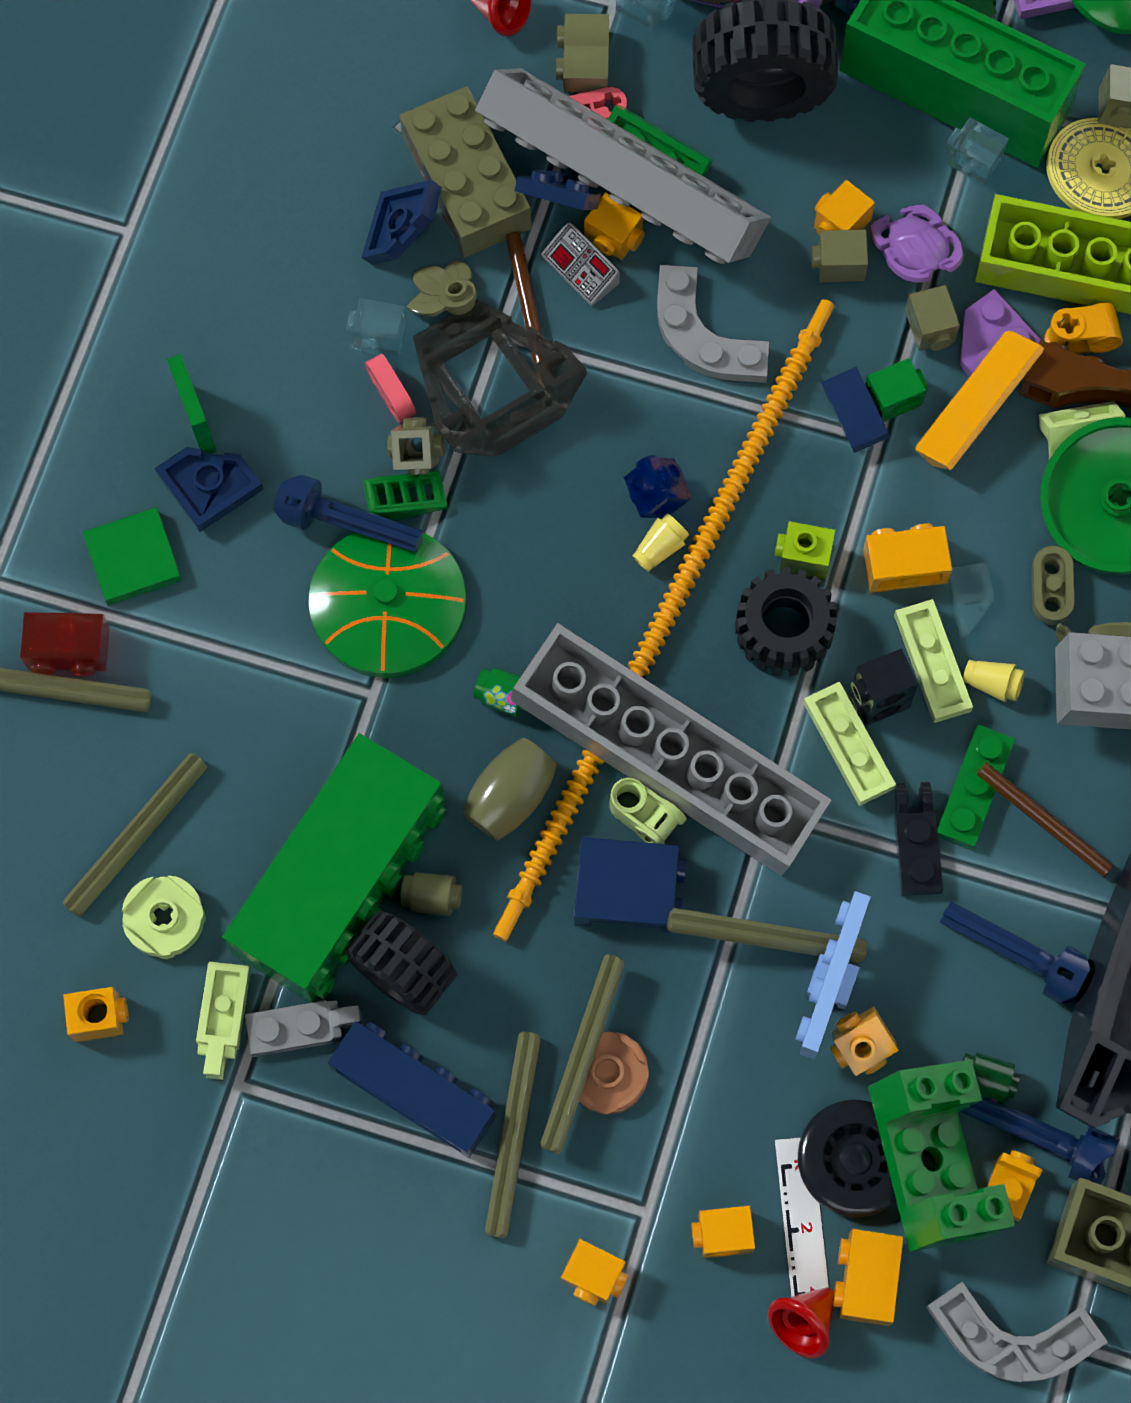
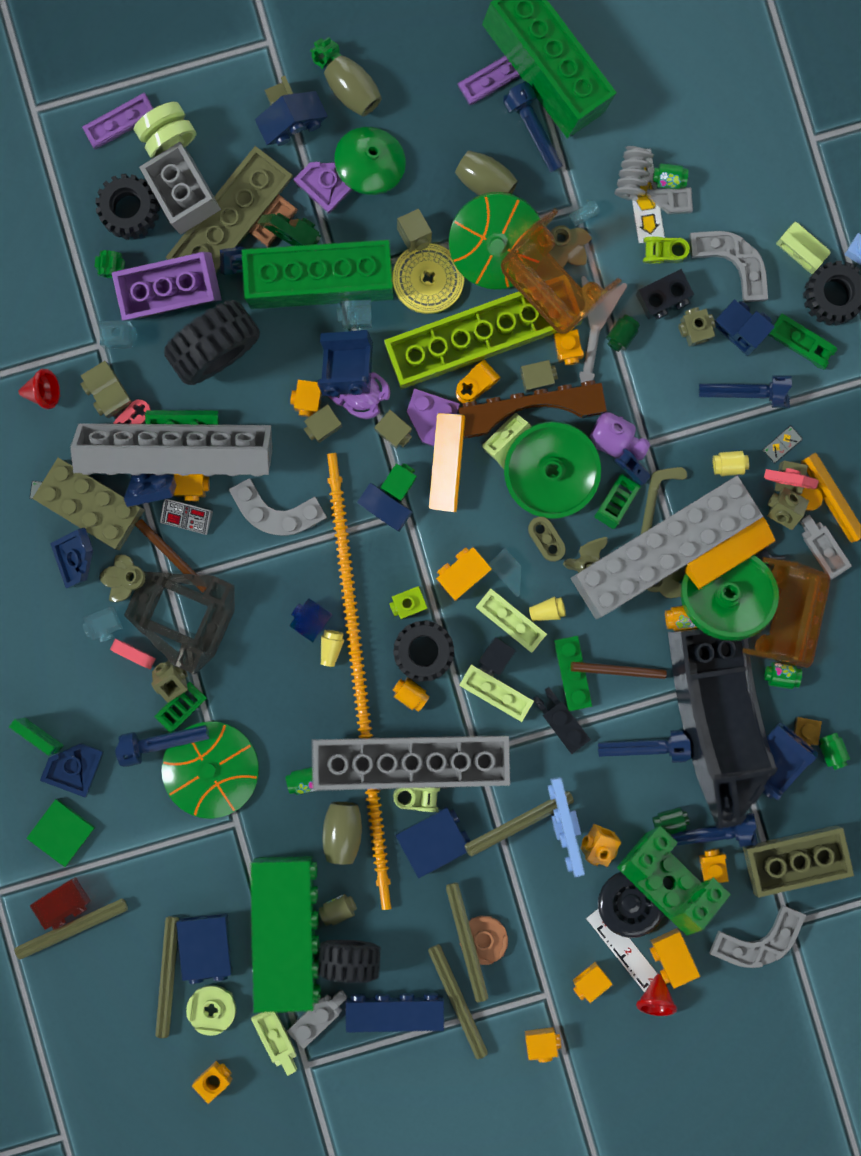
camera: 35 degrees left, 15 degrees up
(213, 824) = (204, 948): none -> dark blue panel
(728, 670) = (410, 694): none -> light orange brick
(925, 196) = (346, 363): none -> dark blue panel

